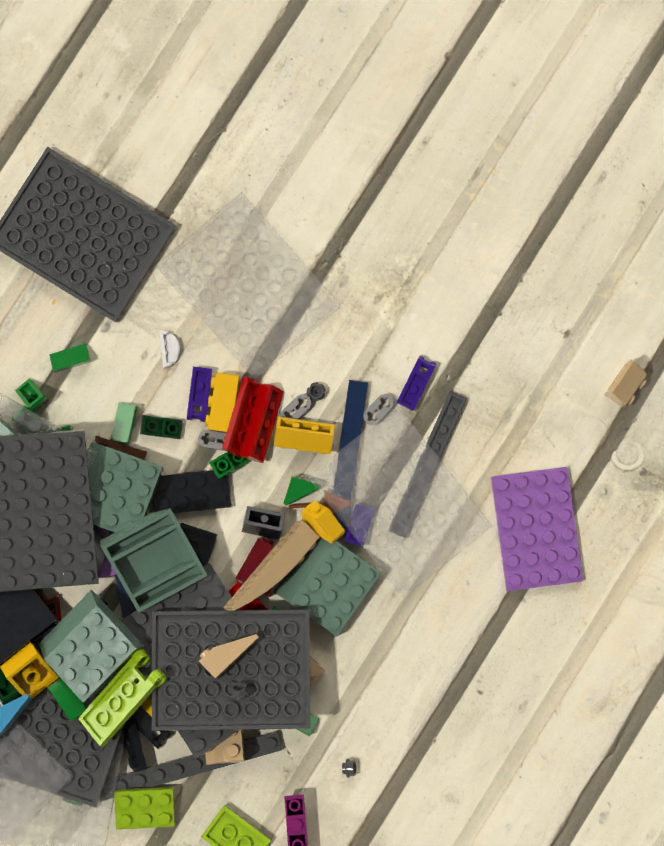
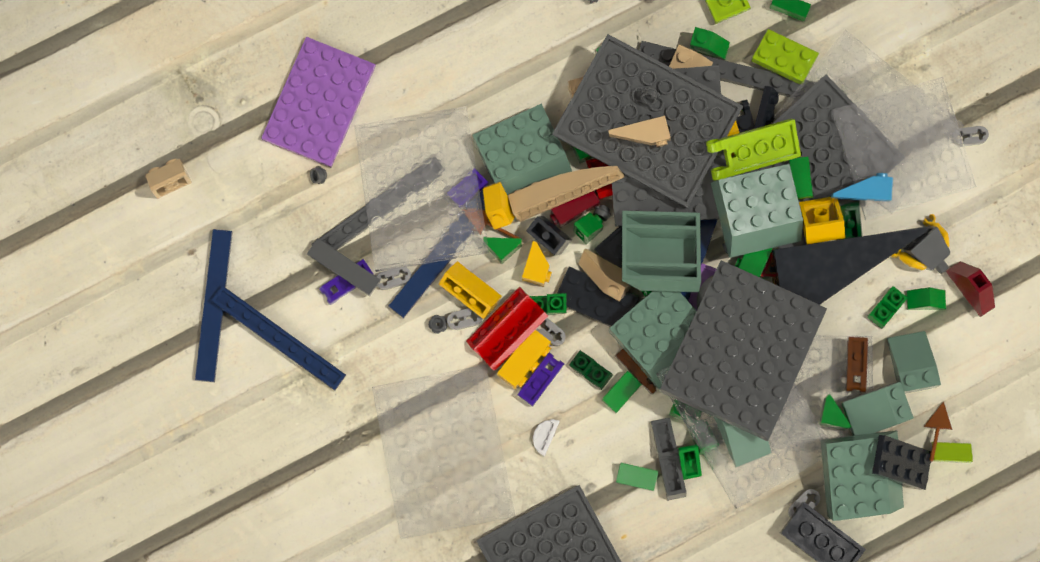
camera: 145 degrees left, 5 degrees down
(51, 389) = (668, 459): none -> dark grey slope
(69, 597) = (754, 261): none -> green slope
(195, 516) = (604, 274): none -> tan slope
(219, 781) = (709, 43): none -> green slope
(228, 571) = (603, 212): none -> dark grey plate
(232, 550) = (588, 227): none -> green slope
(258, 489) = (536, 267): none -> yellow slope
(425, 392) = (343, 267): none -> dark grey slope
(446, 301) = (278, 338): none -> dark blue tile
(497, 462) = (318, 175): none -> dark grey plate
(519, 298) = (212, 314): none -> dark blue tile

